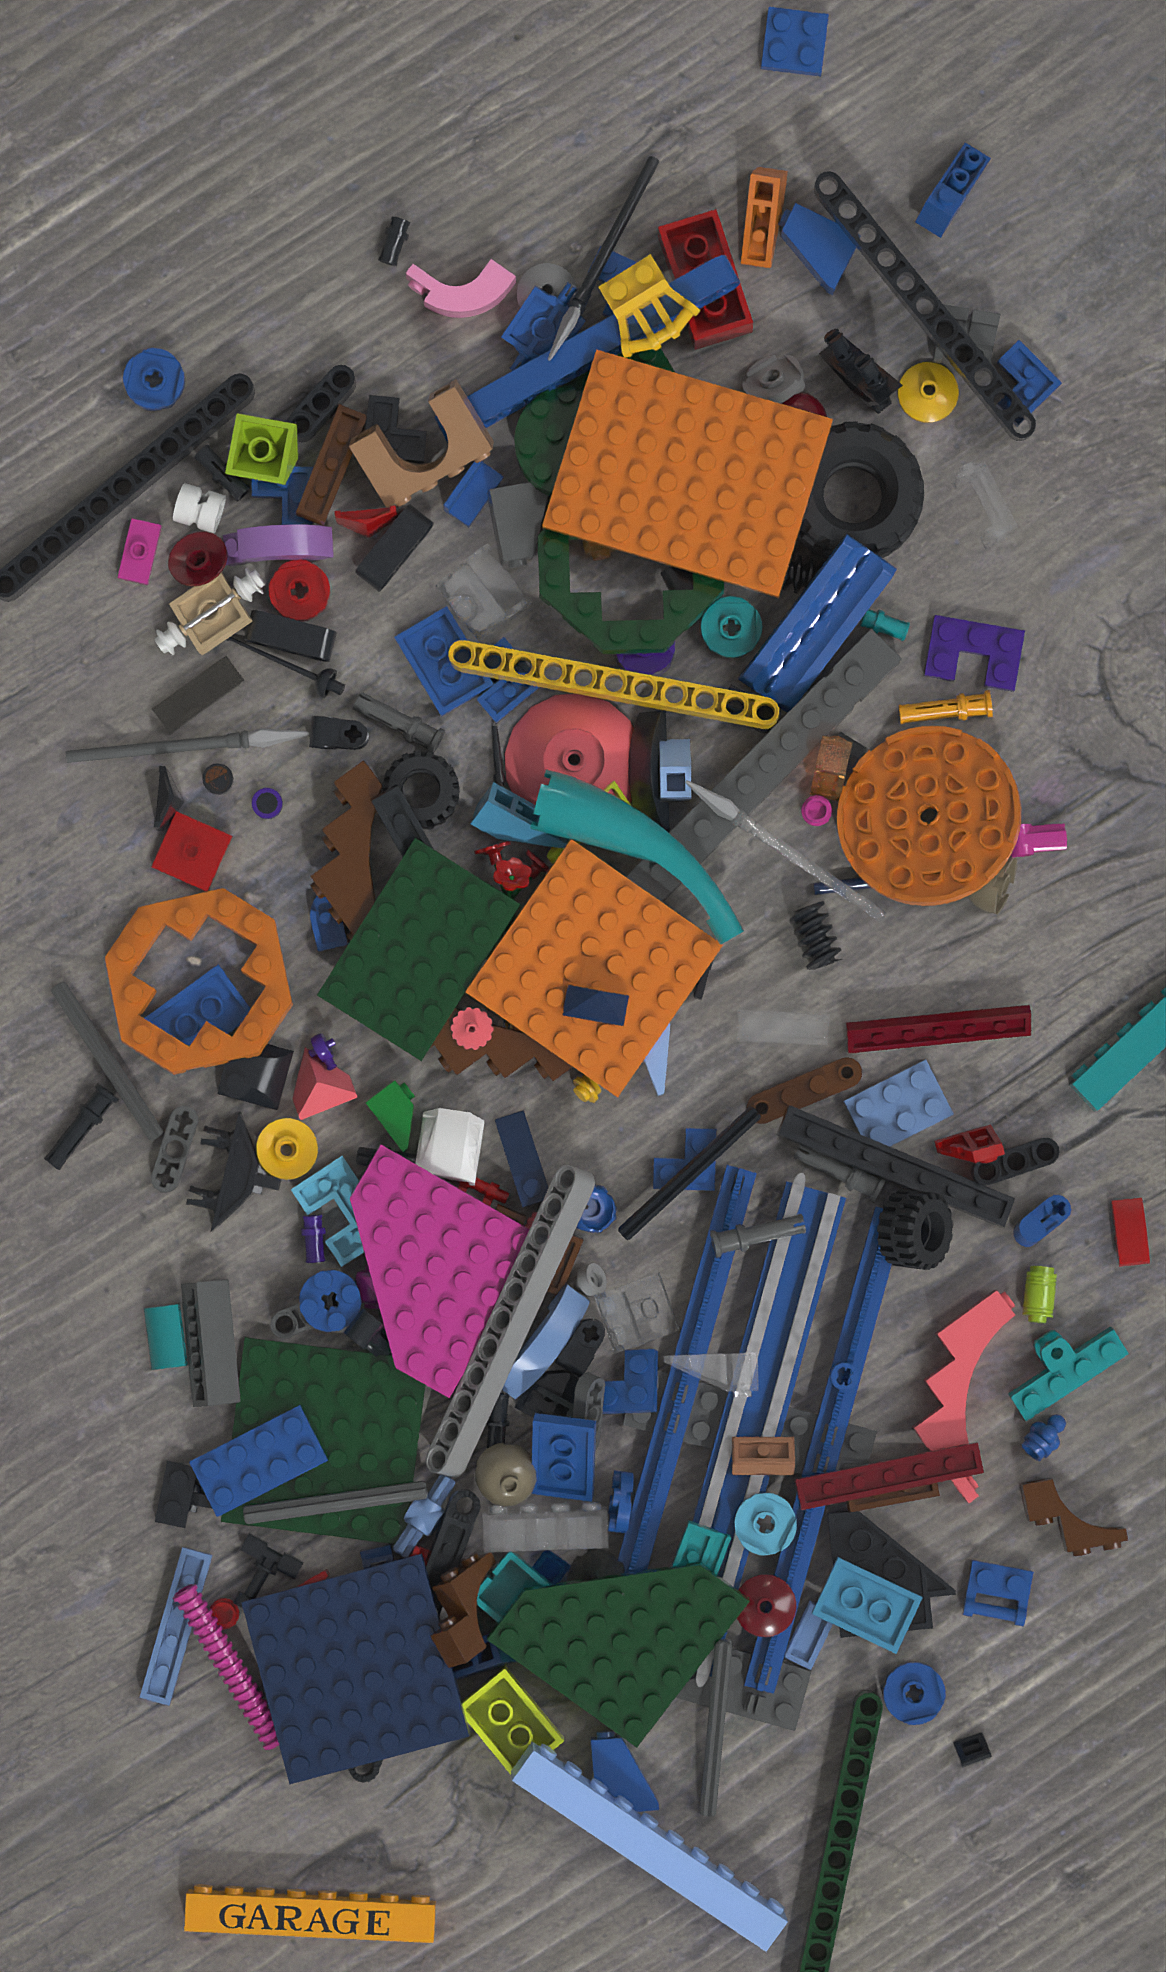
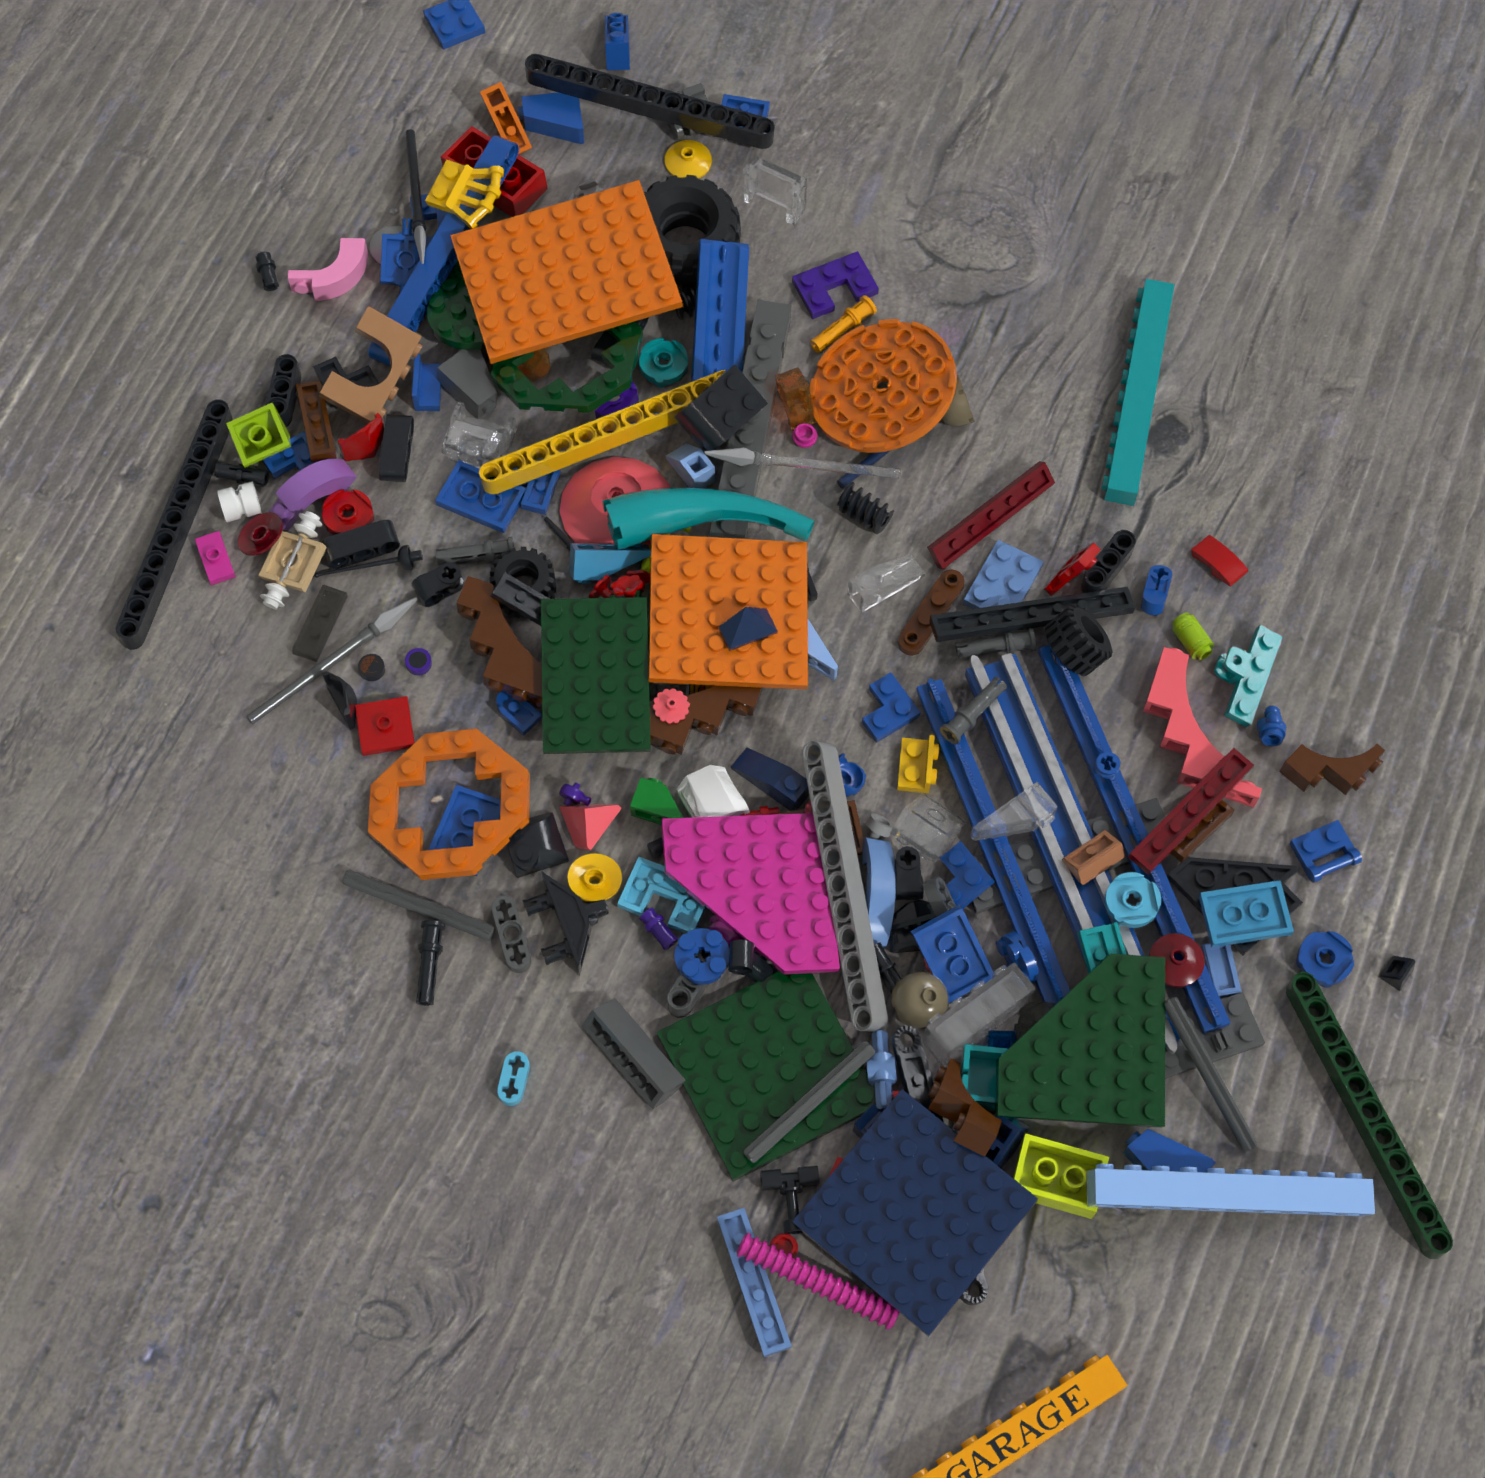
camera: 30 degrees left, 20 degrees down
(81, 1286) = (507, 1076): none -> medium azure beam
(143, 365) = (153, 458): blue plate -> none
(165, 1337) = (596, 1070): teal brick -> none
(179, 1495) = (689, 1181): black hinge -> none
(258, 1461) = (730, 1111): blue plate -> none
(586, 1089) = (781, 702): yellow plate -> none
(644, 766) = (662, 466): black slope -> none
(672, 1240) = (916, 764): none -> yellow bracket
(689, 1173) = (894, 708): black axle -> none
(736, 744) = (720, 409): none -> black brick
(859, 371) = (639, 164): black connector -> none
(885, 624) = (775, 296): teal pin -> none
(1040, 839) = (969, 360): dark pink piece -> none

